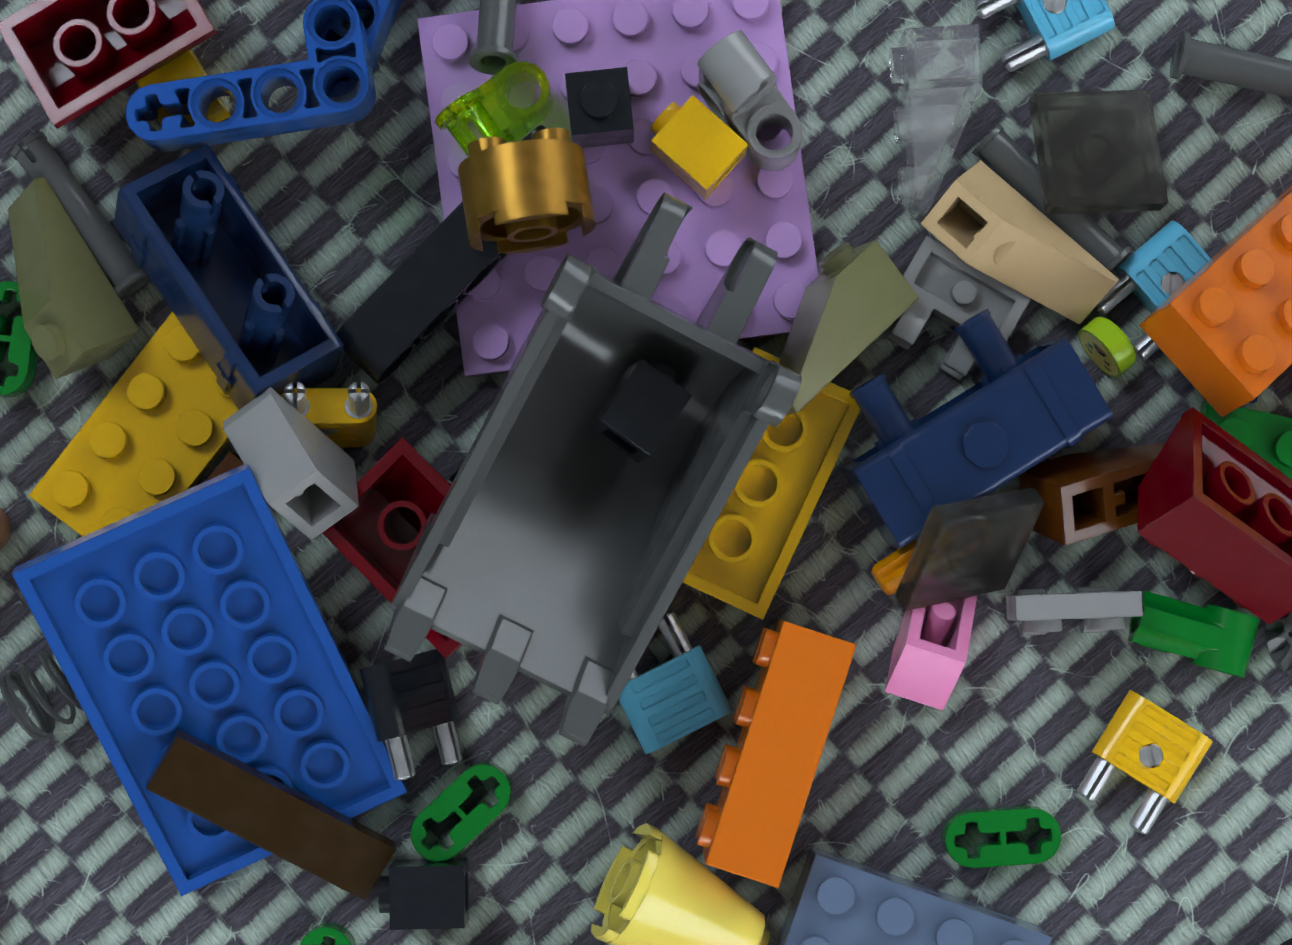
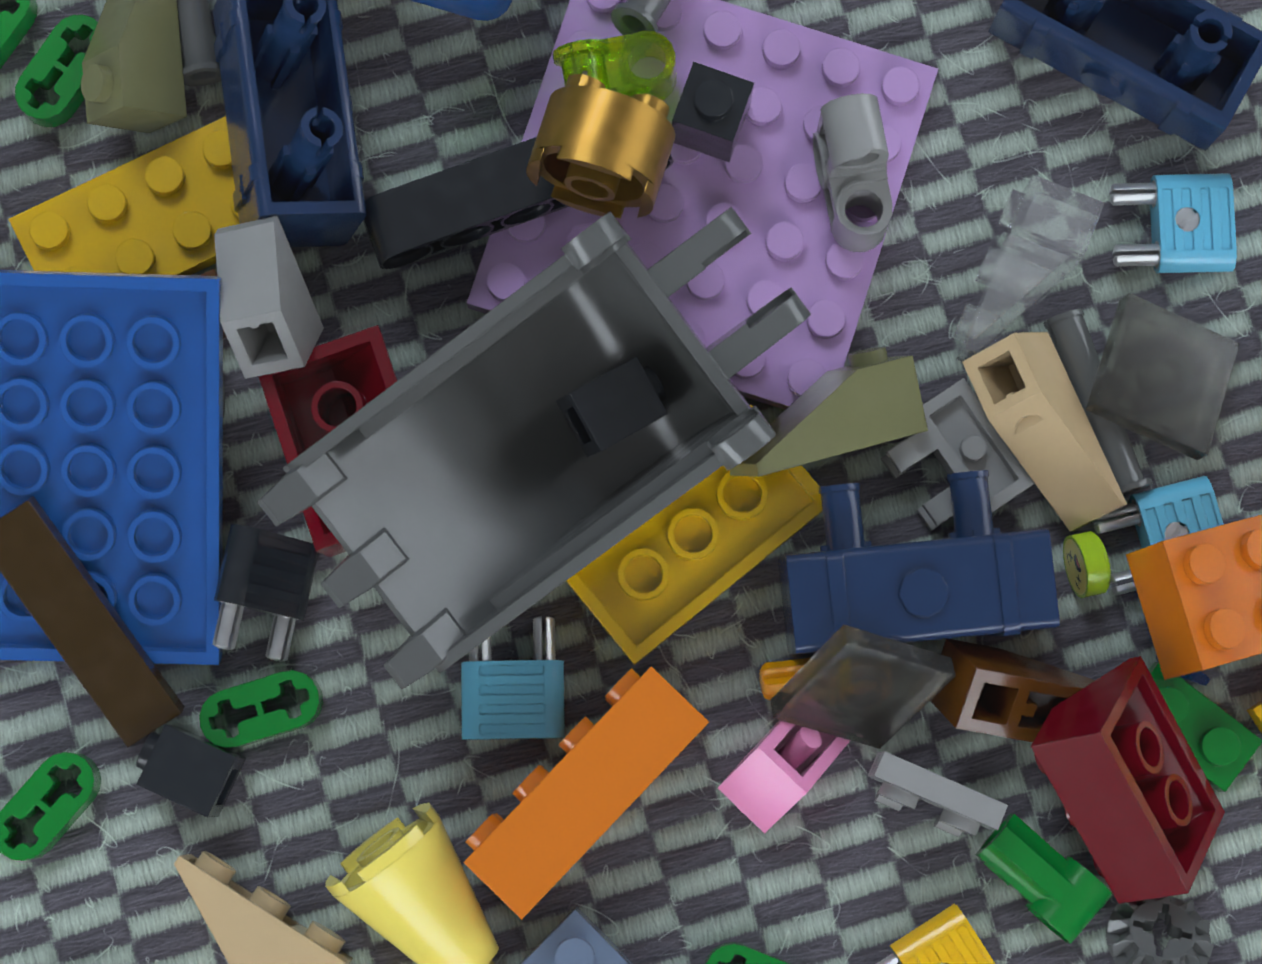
camera: 25 degrees right, 5 degrees down
(342, 414) = (333, 279): yellow piece -> none
(696, 145) = (785, 189): yellow brick -> none

